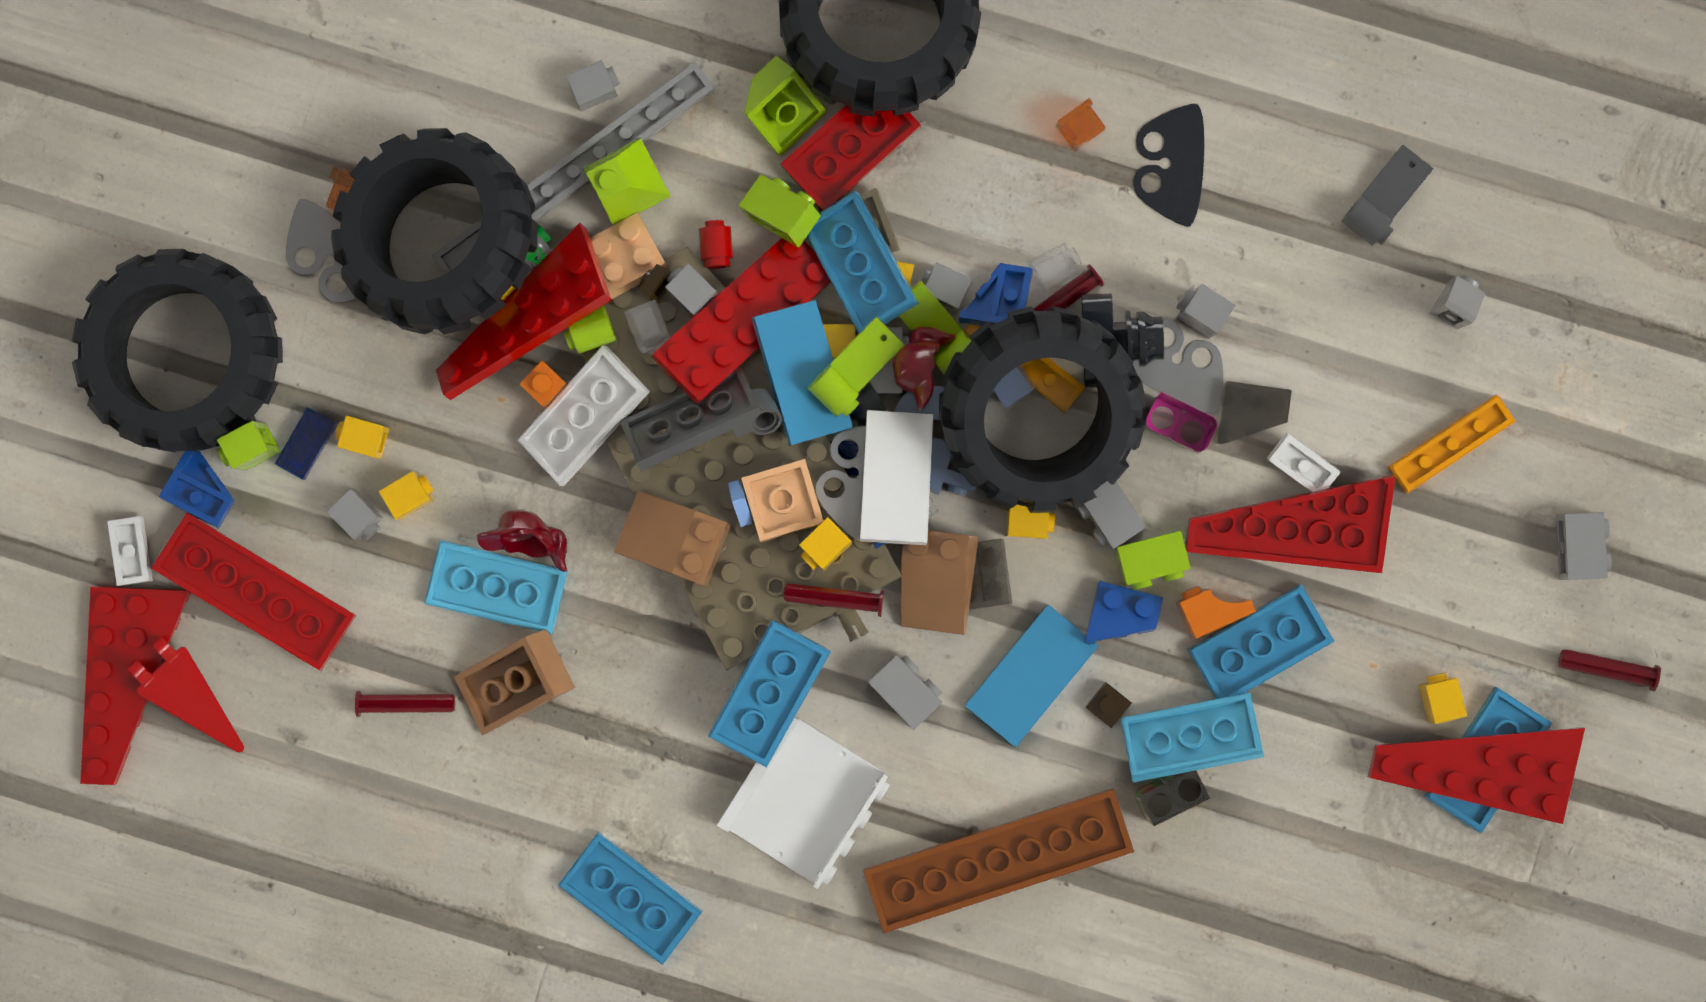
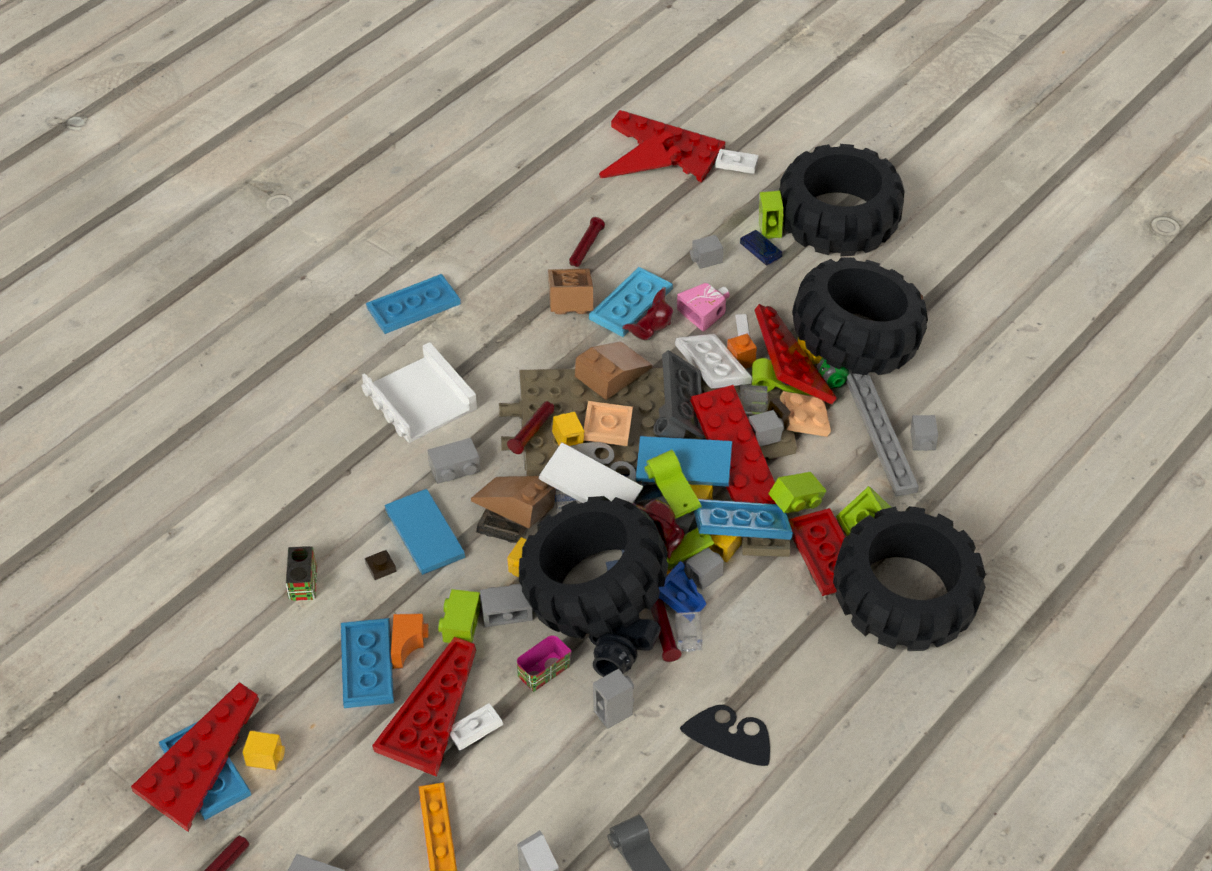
camera: 115 degrees right, 40 degrees down
(197, 490) = (748, 196): blue wing -> none
(253, 592) = (685, 200): red plate -> none
(361, 436) = (751, 268): yellow brick -> none
(407, 495) = (706, 272): yellow brick -> none
(467, 476) = (703, 304): none -> bright pink torso
(480, 409) = (742, 324): none -> white sticker
(626, 181) = (852, 425): lime slope -> none
(715, 244) = (791, 460): red brick -> none
(739, 502) = (618, 399): light blue tile -> none
(769, 693) = (493, 383): dark azure tile -> none
(998, 860) = (319, 475): dark orange plate -> none
(1080, 125) = (782, 682): clear orange panel -> none
(1121, 612) = (434, 588): blue wing -> none
(1184, 381) = (570, 686): light grey piece -> none
(1192, 737) = (330, 592): medium azure tile -> none
(1251, 410) = (530, 715): clear smoke wing -> none

